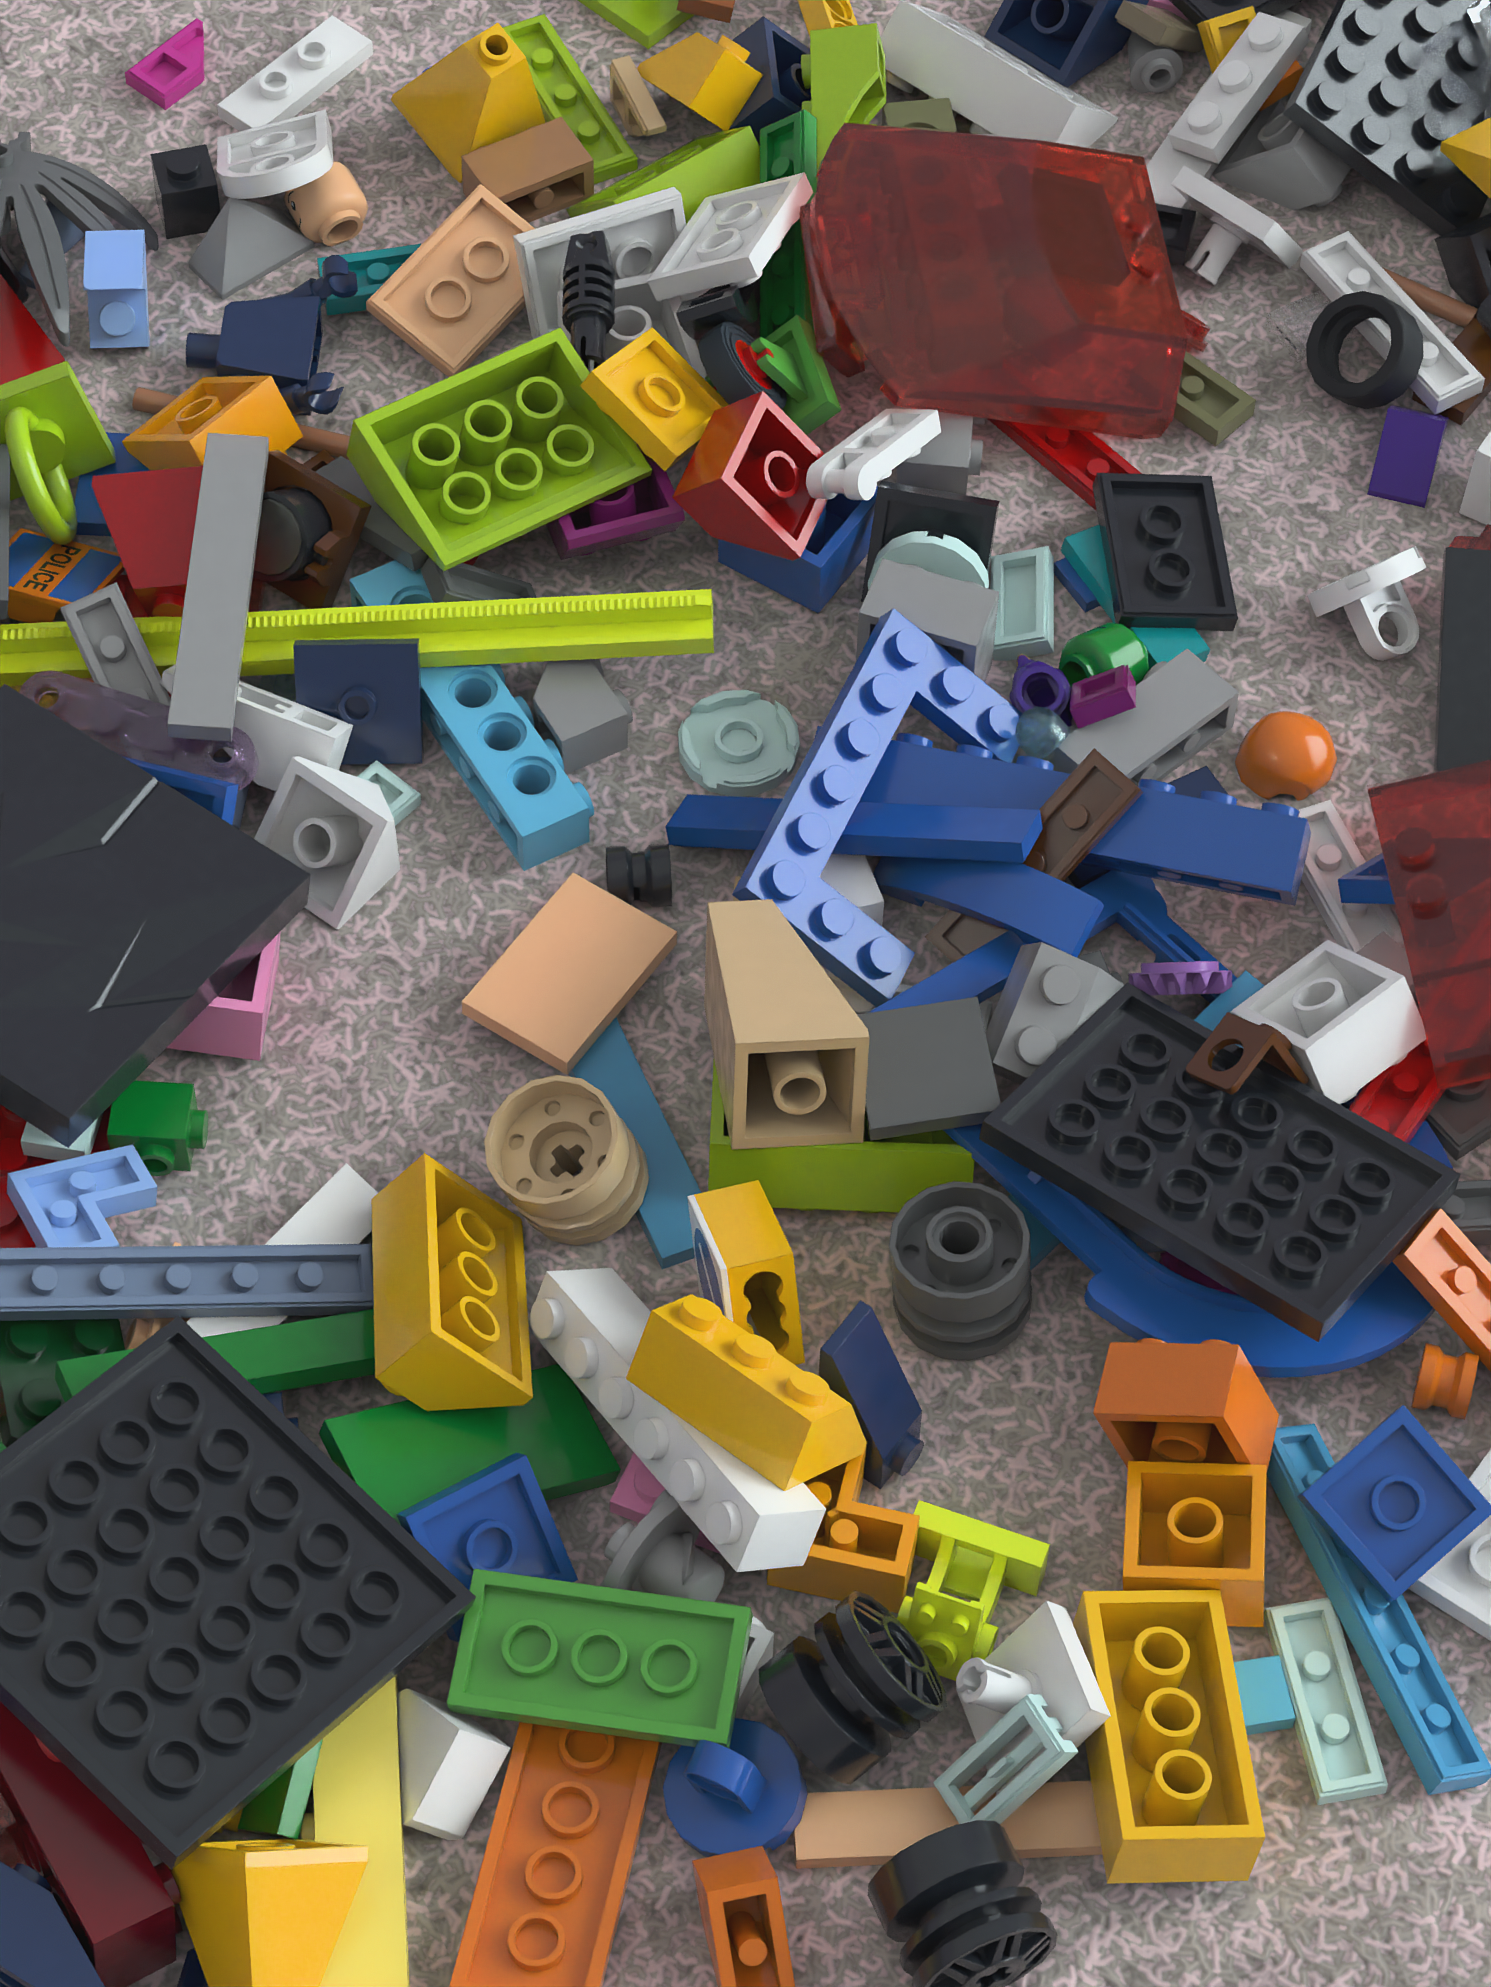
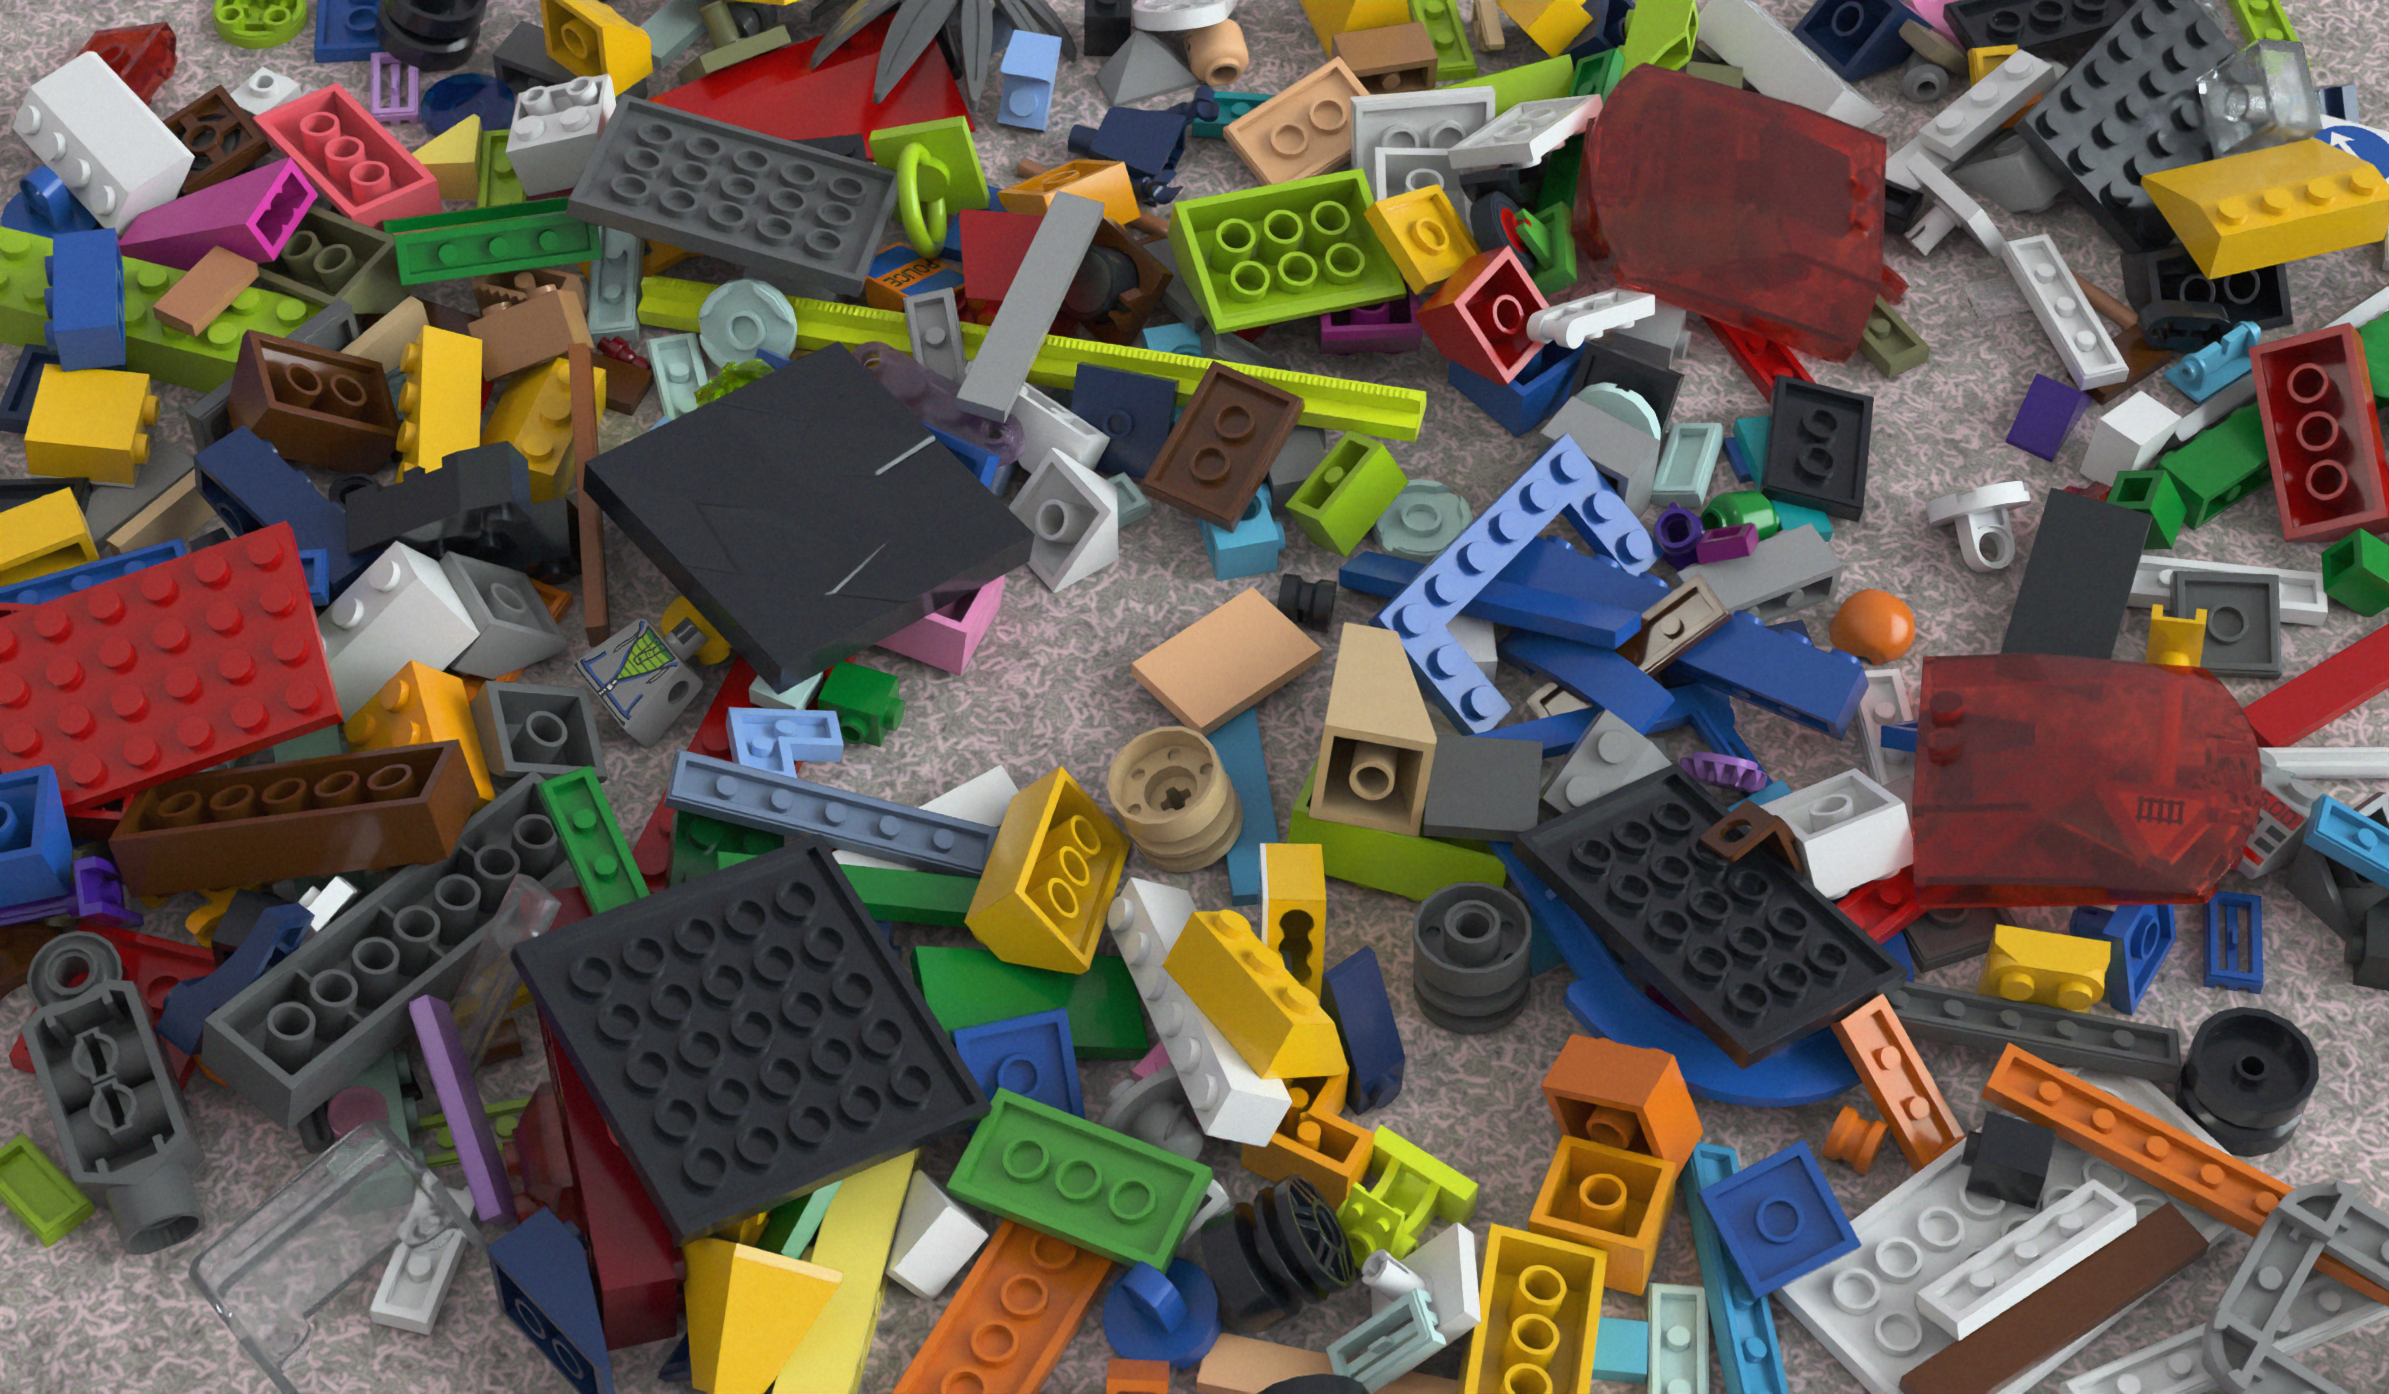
camera: 15 degrees right, 5 degrees down
(493, 710) = (1222, 446): none -> reddish brown tile
(589, 295) = (1397, 151): black hinge -> none
(650, 732) = (1347, 493): none -> lime brick
(1040, 731) = (1667, 559): clear light blue hinge -> none
(1333, 327) = (2014, 302): black tyre -> none

